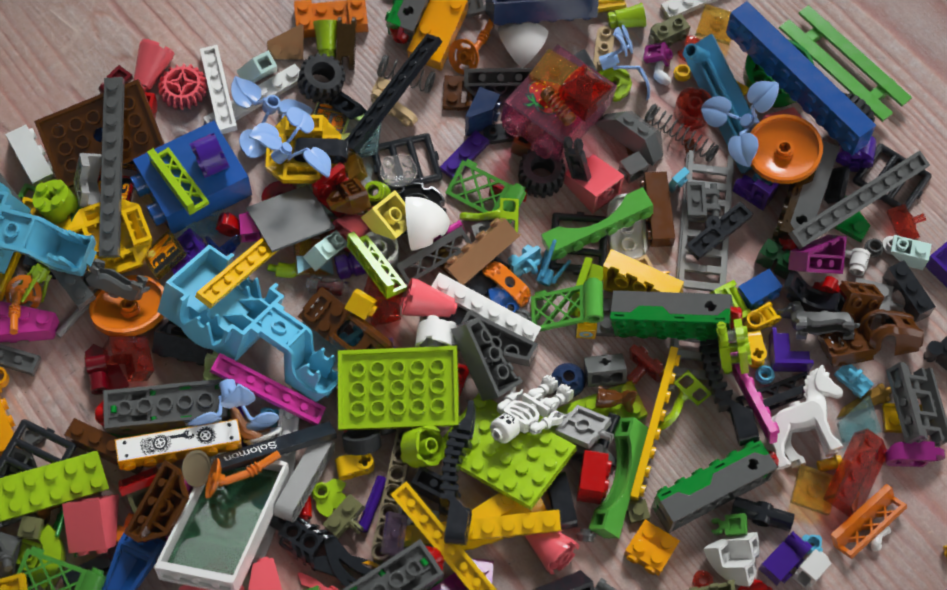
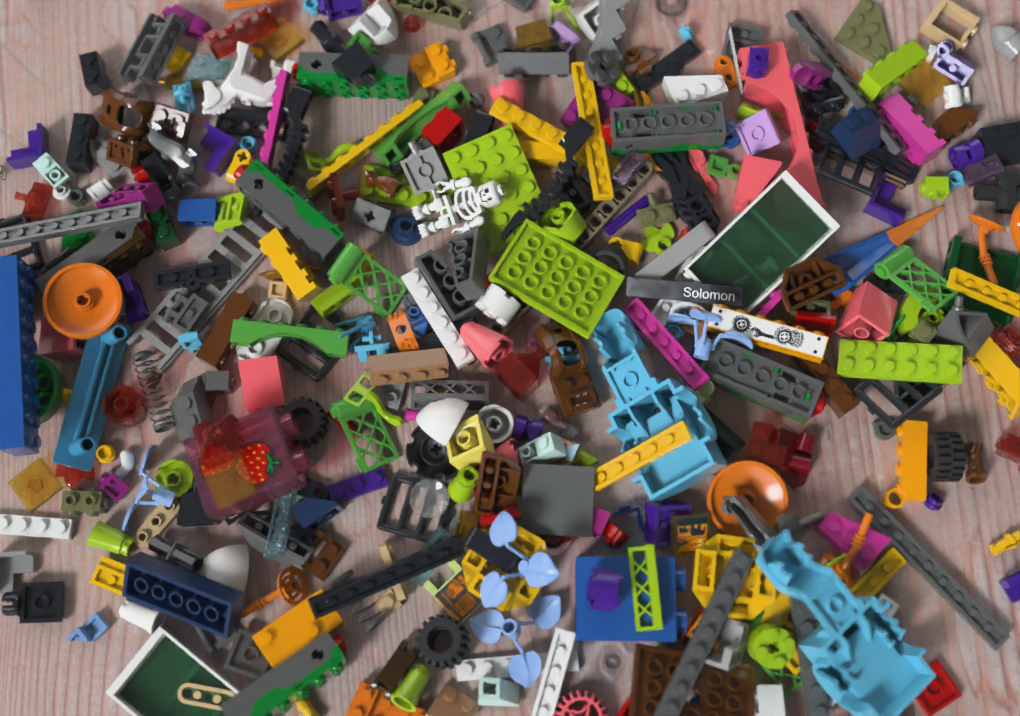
camera: 140 degrees left, 10 degrees up
(196, 468) = (762, 300): dark tan piece -> none
(217, 479) = (750, 279): orange dish -> none
(347, 106) = (436, 595): black slope -> none
(361, 304) = (544, 367): yellow brick -> none
(372, 267) = (515, 380): lime fence -> none
(497, 75) = (280, 526): none -> clear light blue plate
(546, 94) = (253, 425): dark orange piece -> none
(570, 31) = (175, 553): none -> black piece
(576, 159) = (269, 392): black hinge -> none
(711, 476) = (355, 66): none -> black torso
(715, 113) = (65, 347): light blue plant -> none
(741, 346) = (262, 148): lime piece -> none
(763, 317) = (213, 187): yellow piece -> none

